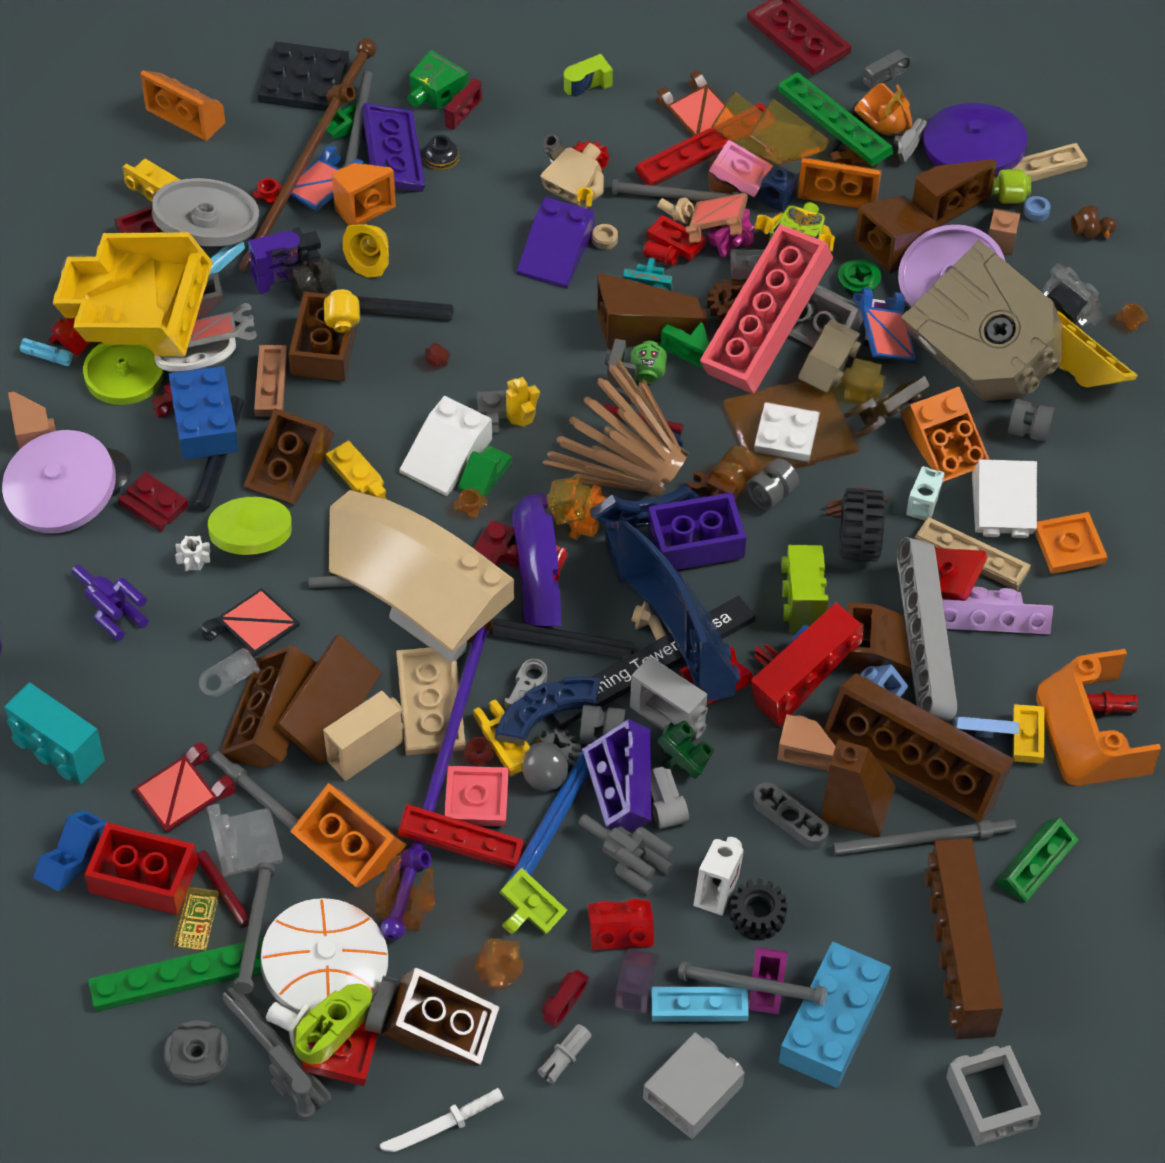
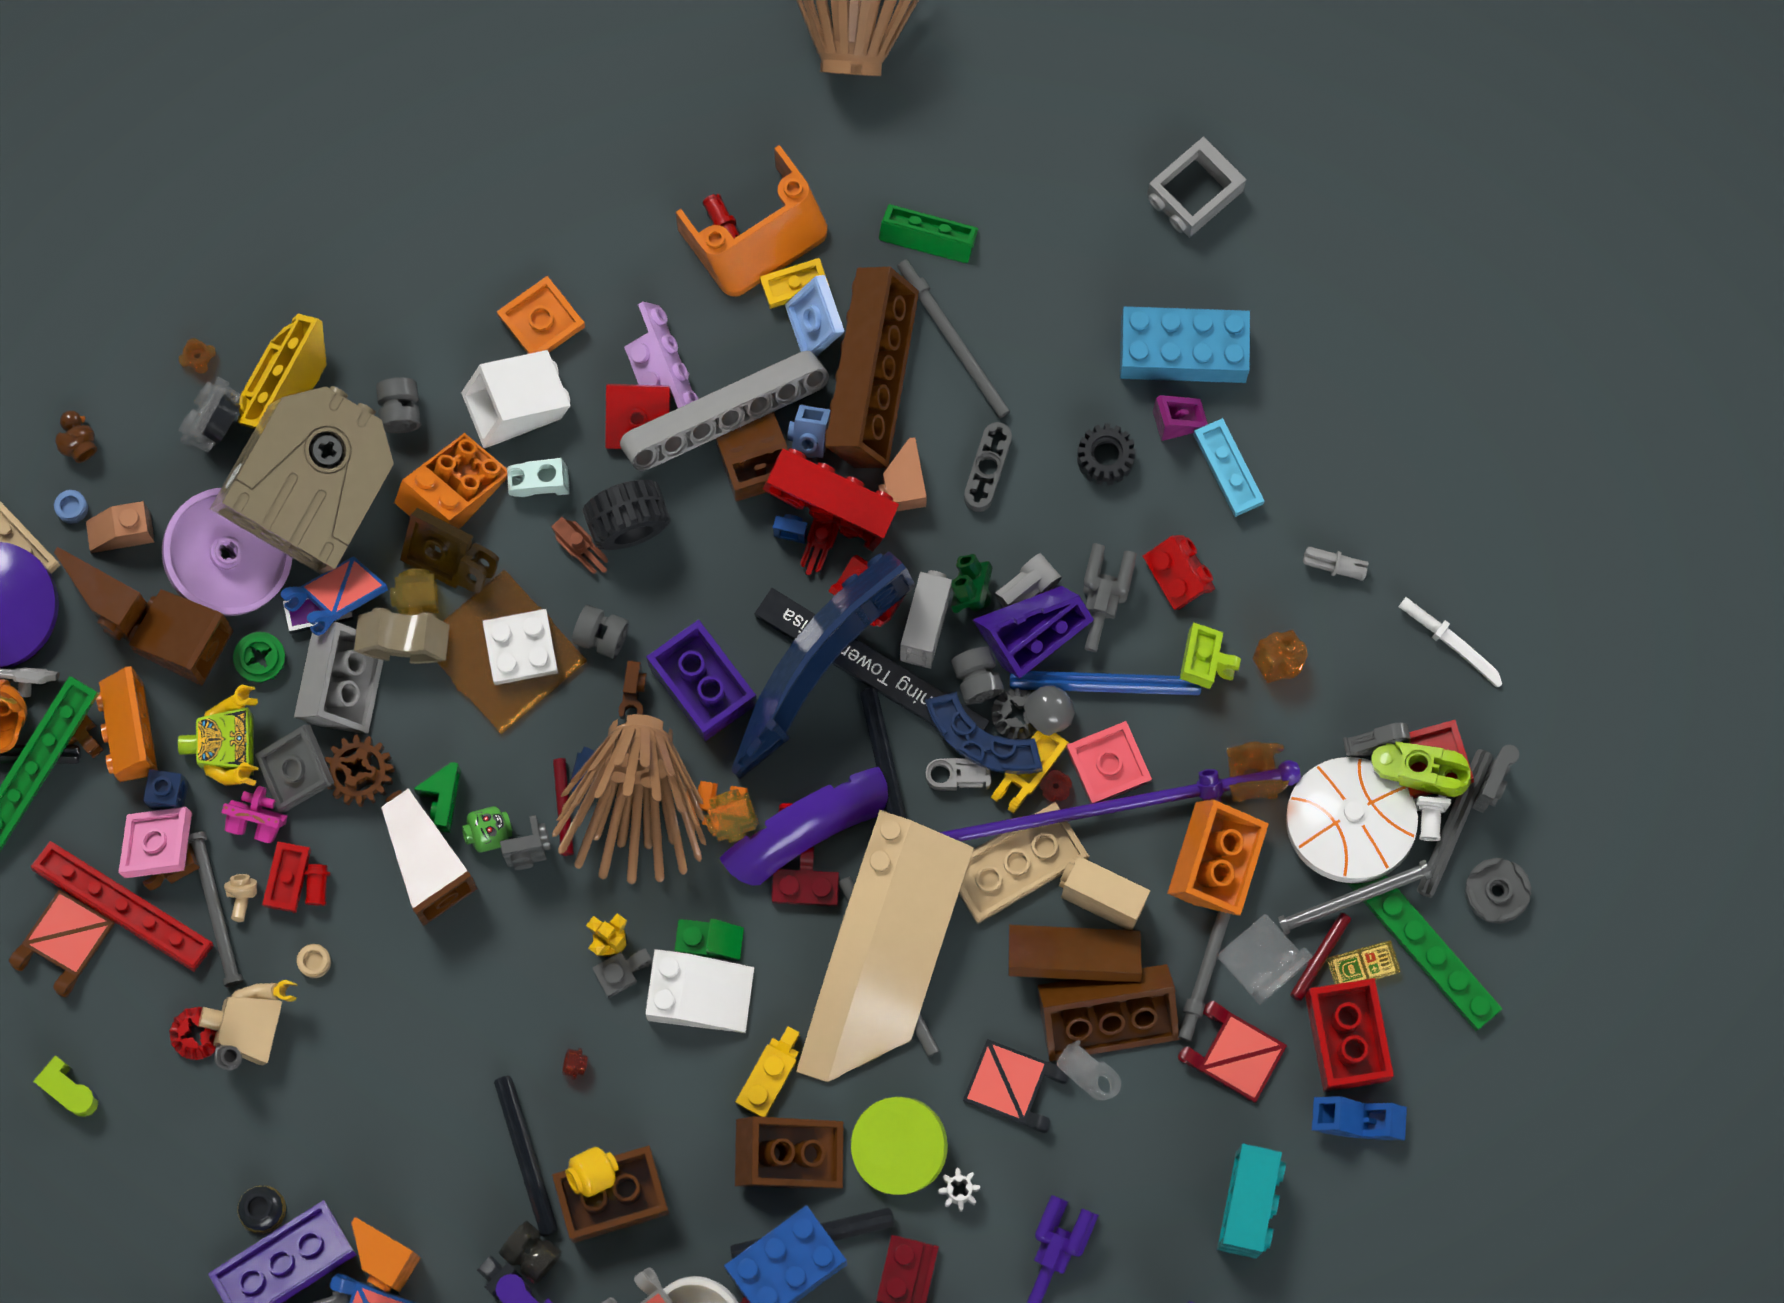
camera: 115 degrees left, 20 degrees up
(270, 379) = (690, 1229): nougat plate -> none
(366, 249) = (457, 1211): yellow piece -> none
(436, 81) = (152, 1266): green torso -> none
(440, 1018) = (1358, 686): reddish brown slope -> none
(460, 837) = (1165, 754): red tile -> none
(463, 104) = (176, 1215): dark red plate -> none
(470, 496) = (764, 942): clear orange plate -> none
(556, 242) = (354, 1005): dark purple slope -> none
(571, 989) = (1271, 583): dark red plate -> none
(636, 511) = (702, 753): dark blue tile -> none
(636, 980) = (1229, 531): clear purple slope -> none
(643, 616) = (826, 694): tan plate -> none
(649, 275) = (368, 866): teal hips -> none
(687, 971) = (1196, 421): dark grey bar -> none
(694, 1085) = (1311, 438): light grey brick -> none
(718, 212) = (237, 840): flag -> none
(721, 862) = (1090, 498): white torso -> none
(736, 467) = (601, 677): clear orange wheel -> none
(766, 309) = (381, 714): coral brick -> none
(770, 134) = (101, 812): clear yellow windscreen -> none
(803, 585) = (720, 548): lime wedge -> none
(857, 790) = (944, 410): reddish brown slope -> none
(964, 939) = (1059, 257): reddish brown brick -> none
(998, 565) = (590, 418): tan tile -> none
(1012, 186) = (56, 532): lime head -> none

